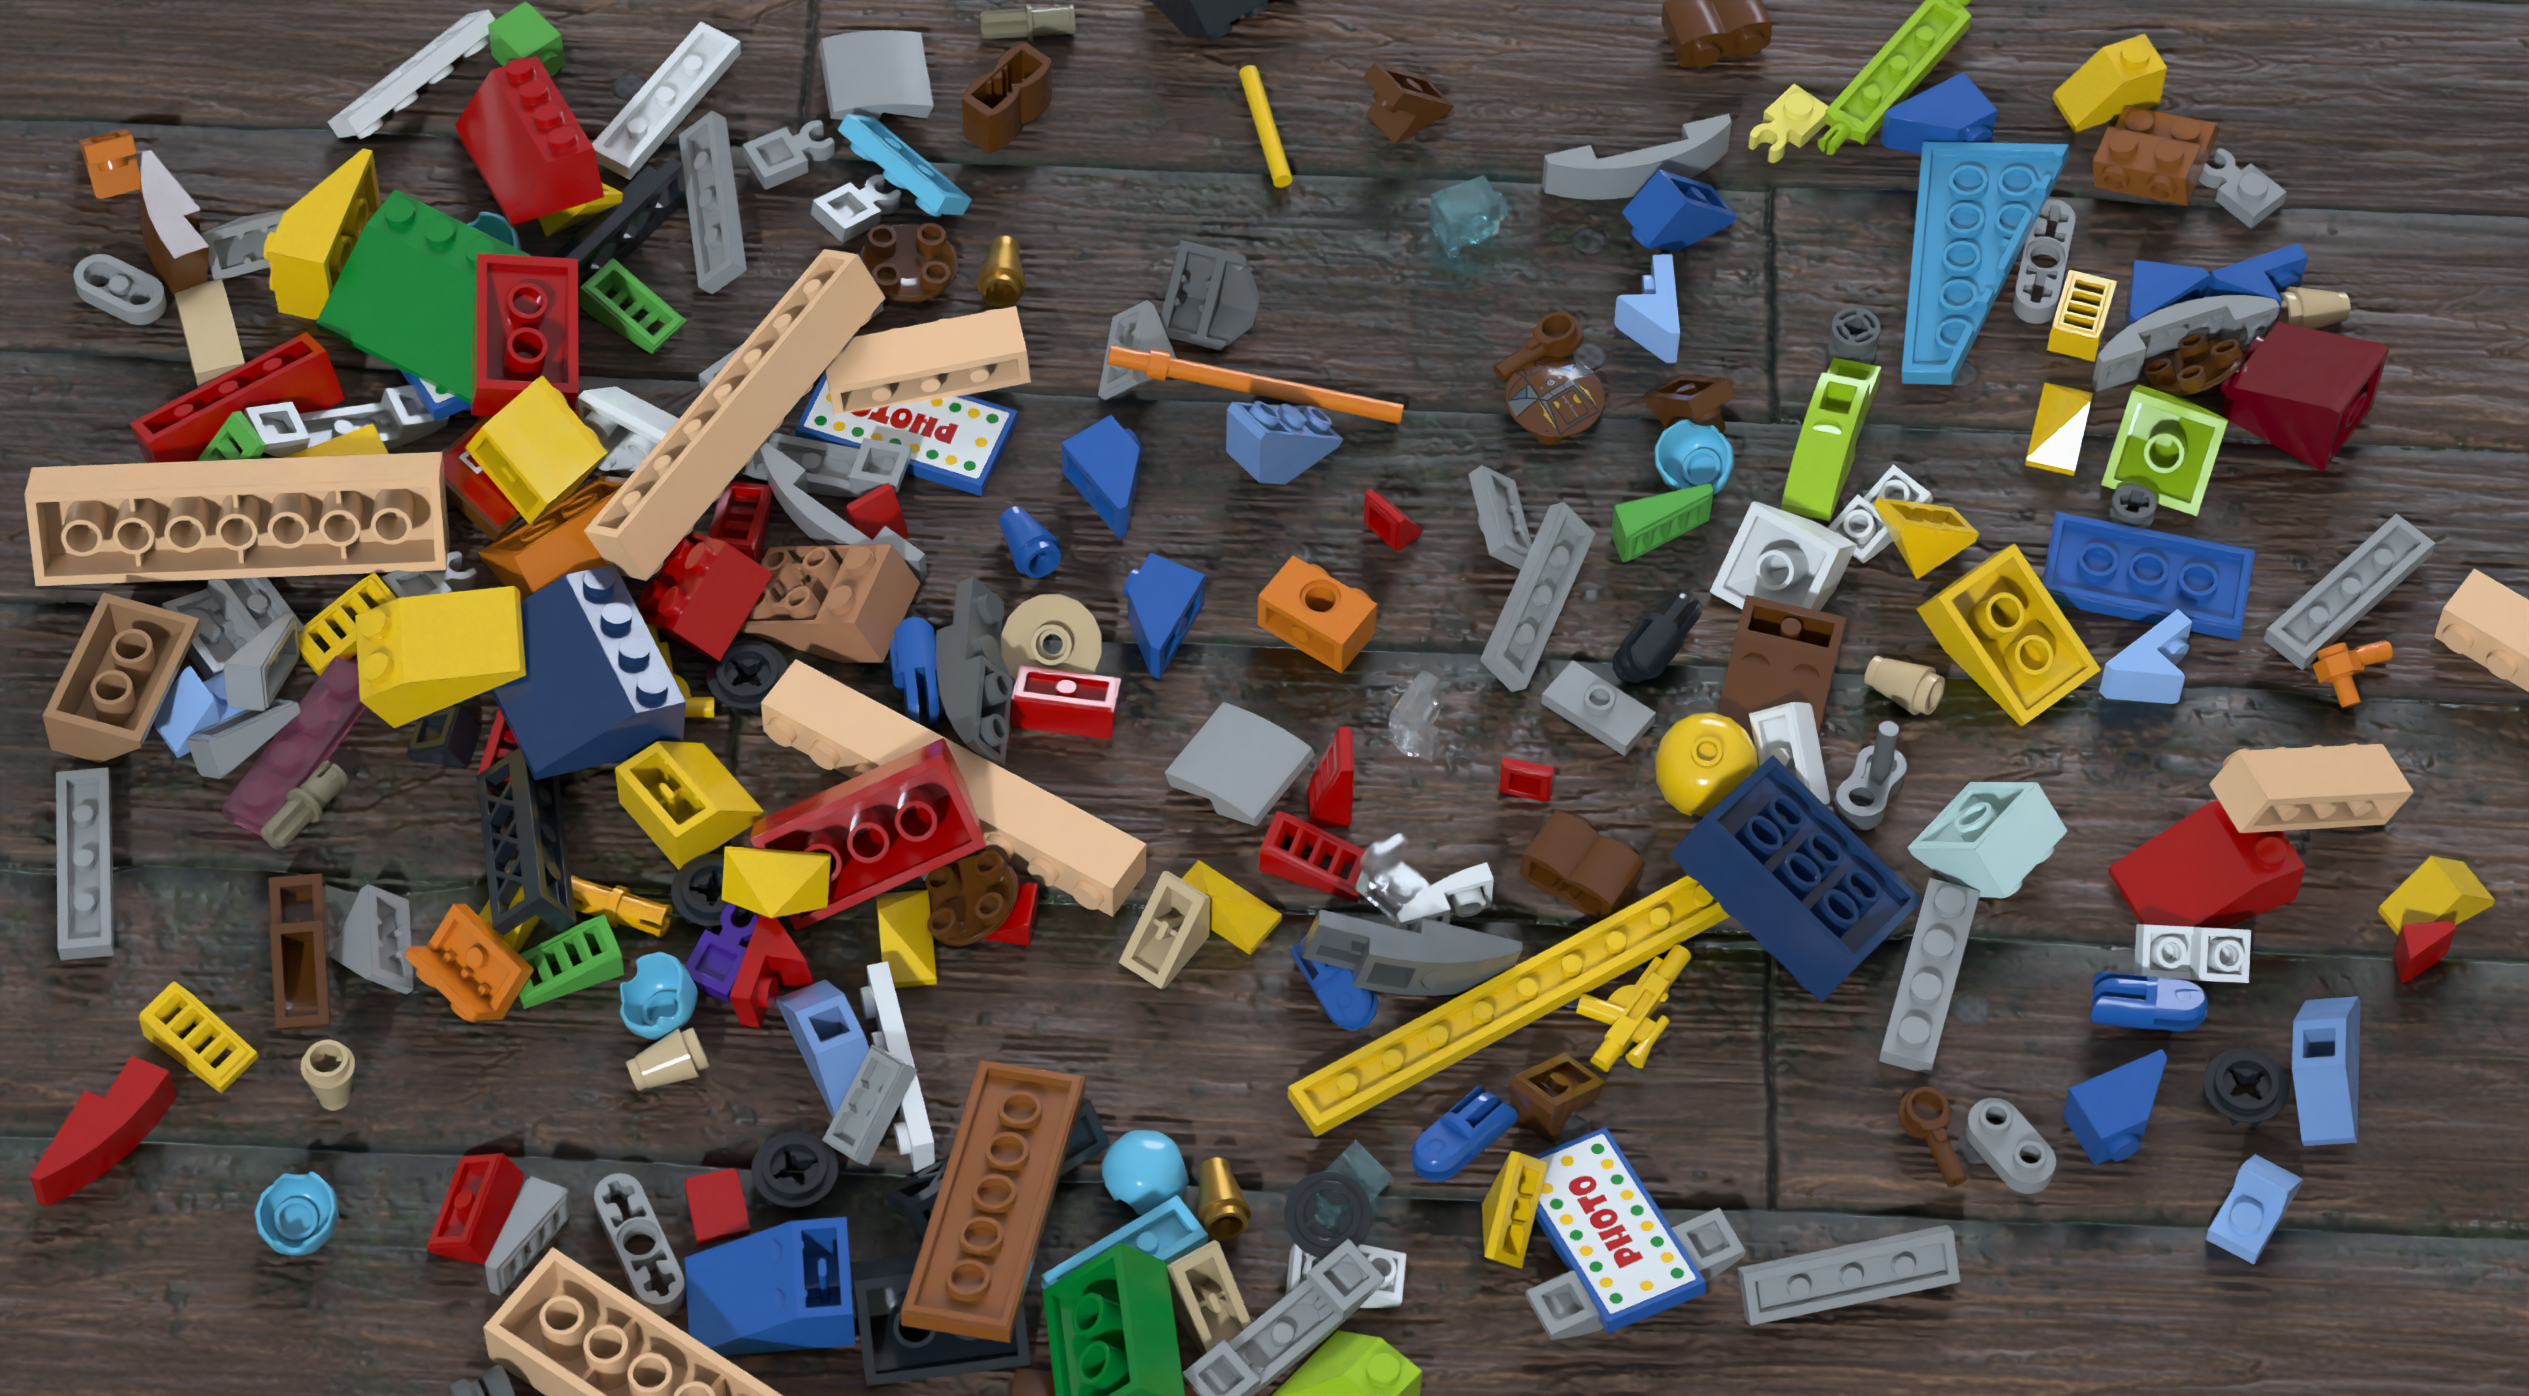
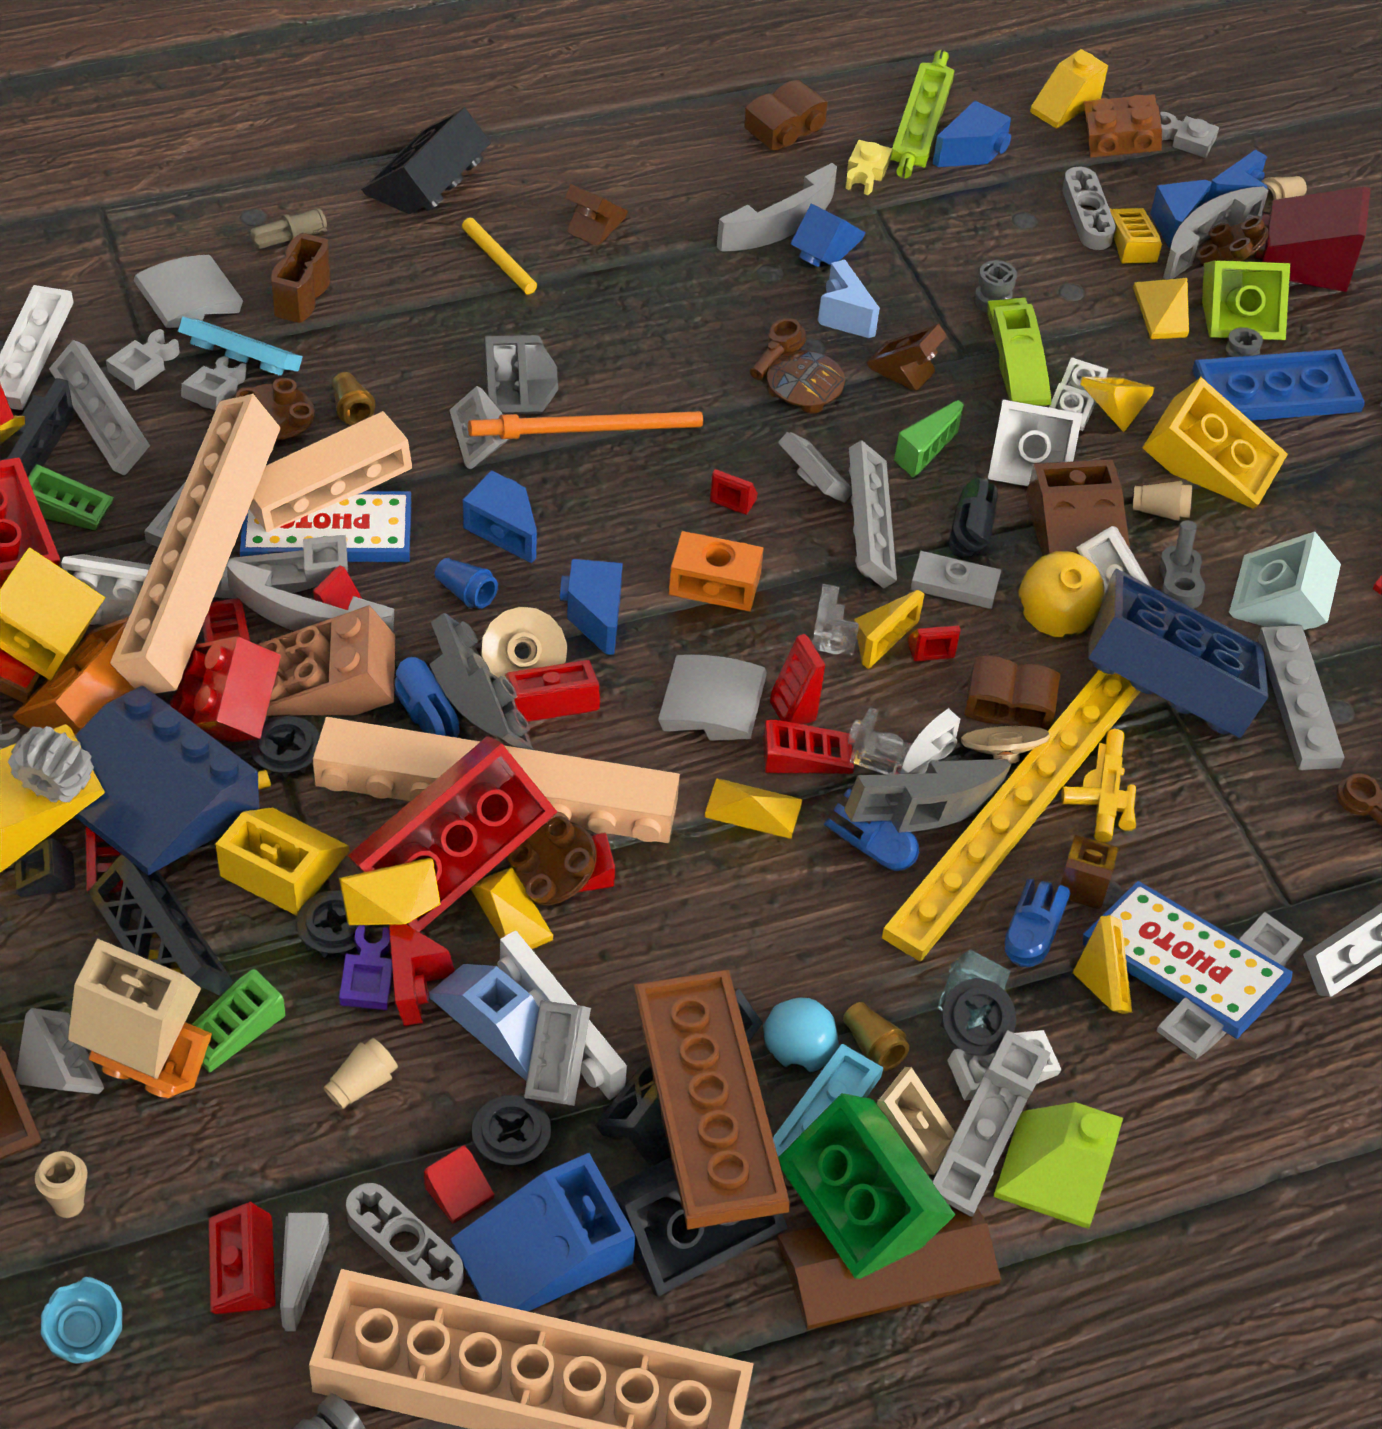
camera: 25 degrees left, 5 degrees down
(455, 916) = (129, 1008): none -> tan slope
(472, 630) = (50, 764): none -> light grey gear
(621, 907) = (264, 959): light orange pin -> none
(658, 996) = (329, 1022): medium azure hair -> none
(1168, 931) = (725, 836): tan slope -> none
(1278, 440) = (623, 455): medium blue slope -> none
(1466, 214) = (678, 274): clear light blue brick -> none
(1482, 741) = (886, 626): none -> yellow slope
(1541, 919) = (1005, 741): none -> tan dish
(1694, 456) = (931, 388): medium azure hair -> none
(1968, 232) = (1032, 201): dark azure wing -> none
(2147, 666) = (1324, 443): light blue slope -> none

